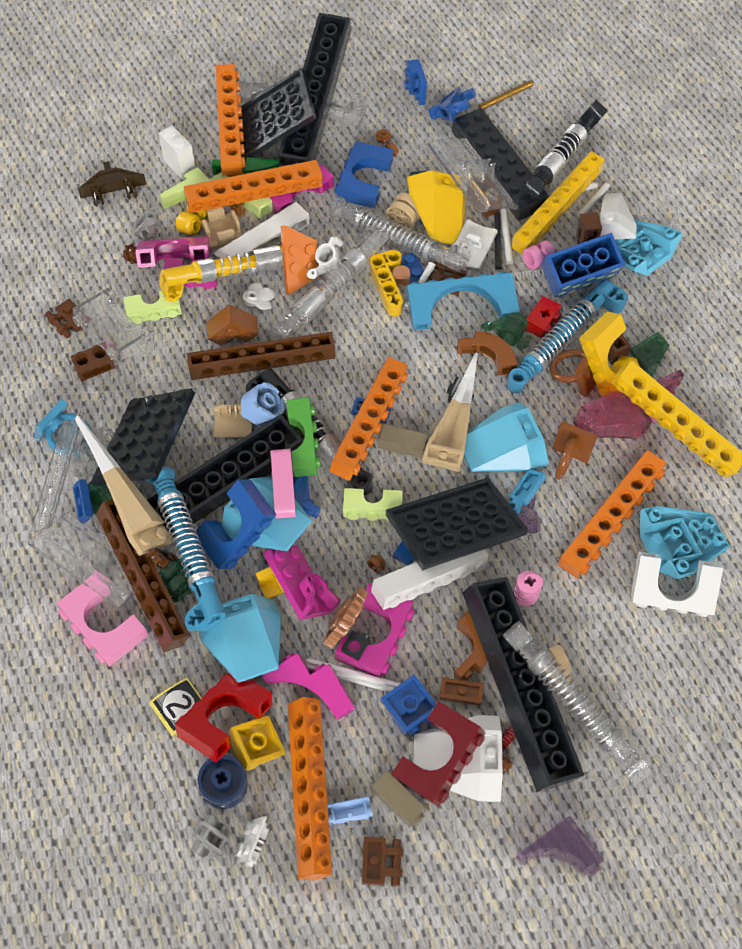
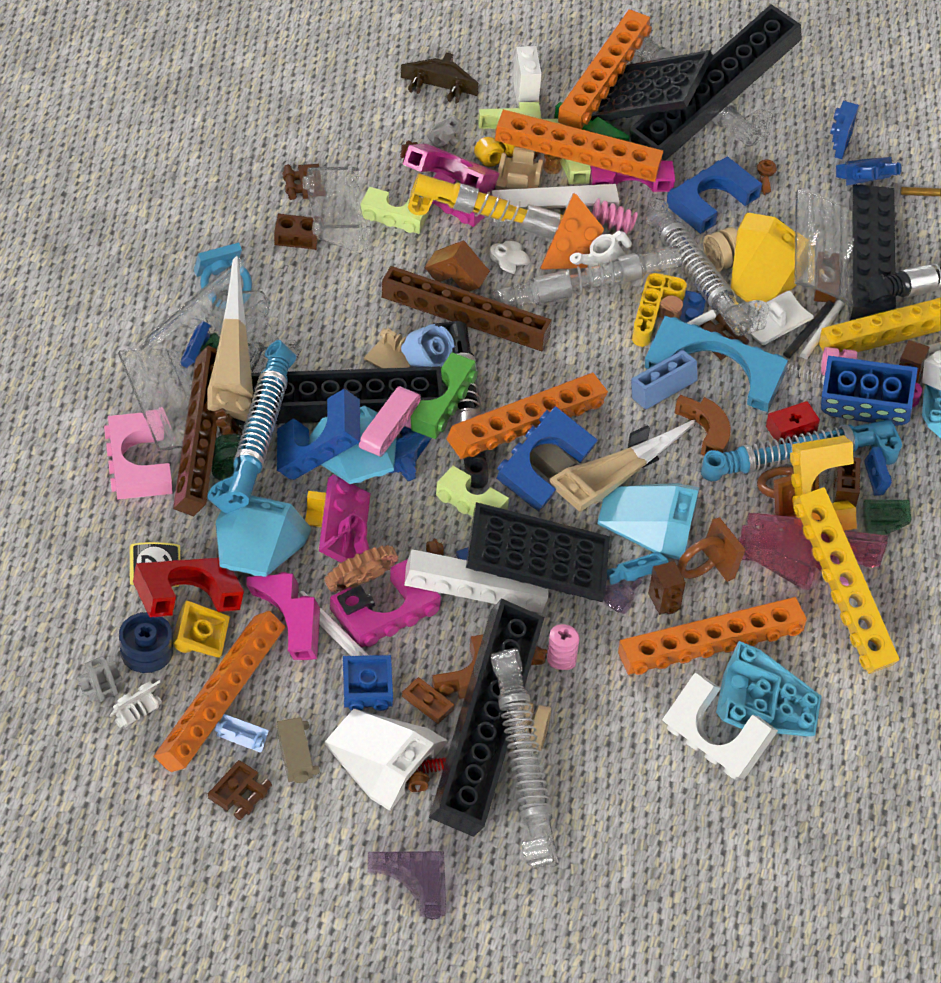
camera: 30 degrees right, 10 degrees down
(147, 434) = (297, 314): black plate -> none
(313, 226) = (614, 217): none -> bright pink piece
(393, 465) = (554, 429): none -> blue arch
(435, 784) = (340, 750): dark red arch -> none
(437, 333) = (664, 379): none -> medium blue brick
(510, 329) = (746, 416): clear green piece -> none
(561, 496) = (666, 588): none -> reddish brown brick
(631, 325) = (877, 471): none -> blue plate

